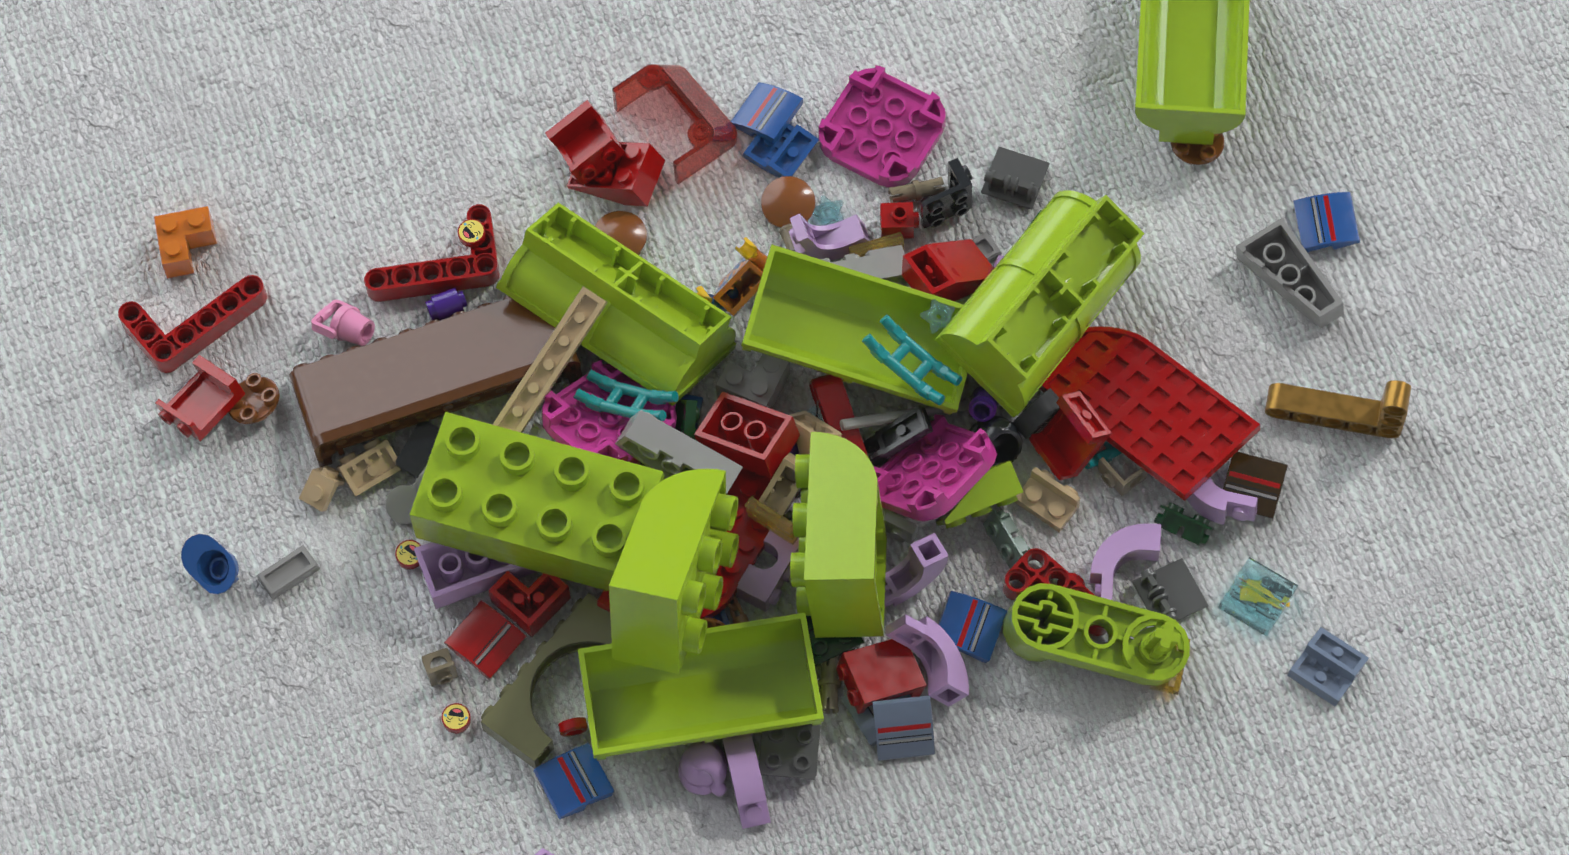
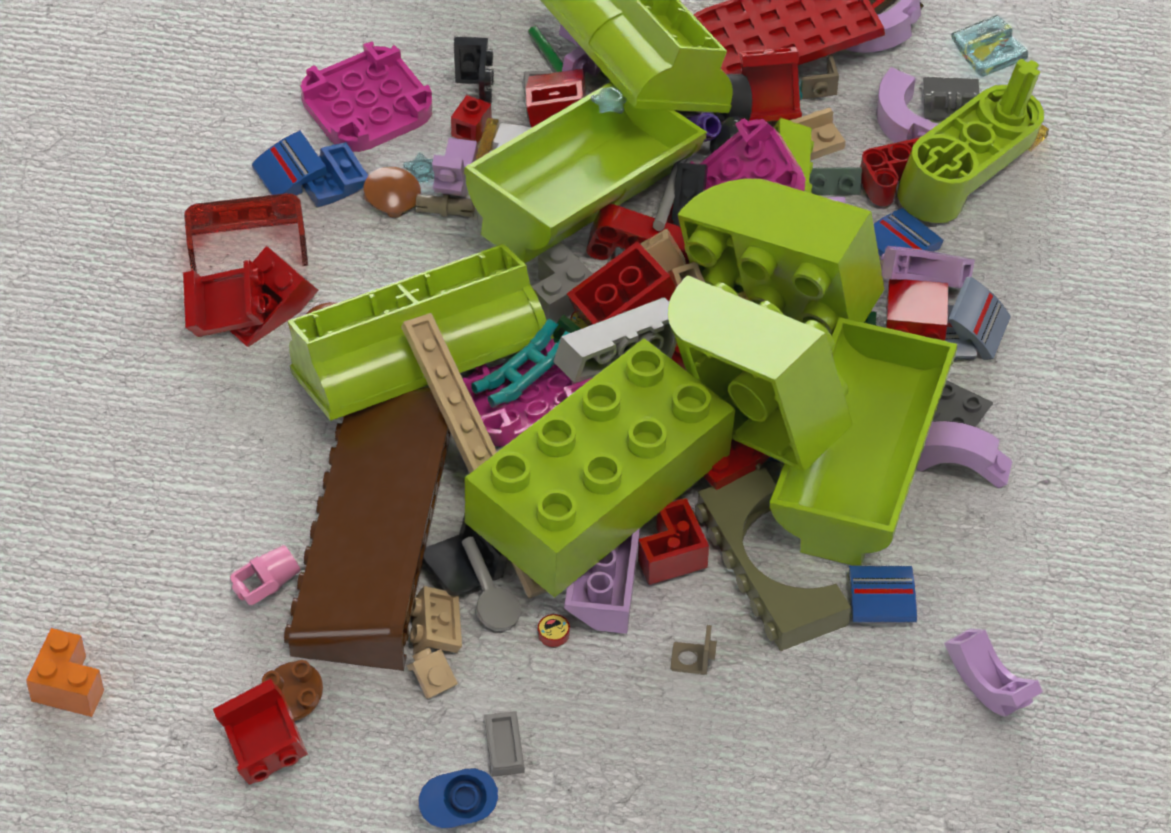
camera: 65 degrees left, 15 degrees down
(194, 325) = (177, 707): red beam -> none
(443, 268) = (283, 447): red beam -> none
(446, 304) = (306, 485): dark purple brick -> none
(456, 718) = (756, 664): tile -> none
(471, 233) = (252, 422): tile -> none
(485, 639) = (687, 603): red slope -> none
(573, 726) = (826, 569): red tile -> none
(703, 769) = (934, 485): lavender piece -> none
(740, 282) = (457, 233): orange torso -> none
(909, 345) = (655, 125): teal piece -> none
(916, 190) = (447, 99): dark tan pin -> none
(1015, 178) = (490, 25): dark grey hinge -> none
(1194, 527) = (899, 54): dark green hinge -> none
(1328, 666) = (1080, 30): sand blue slope -> none

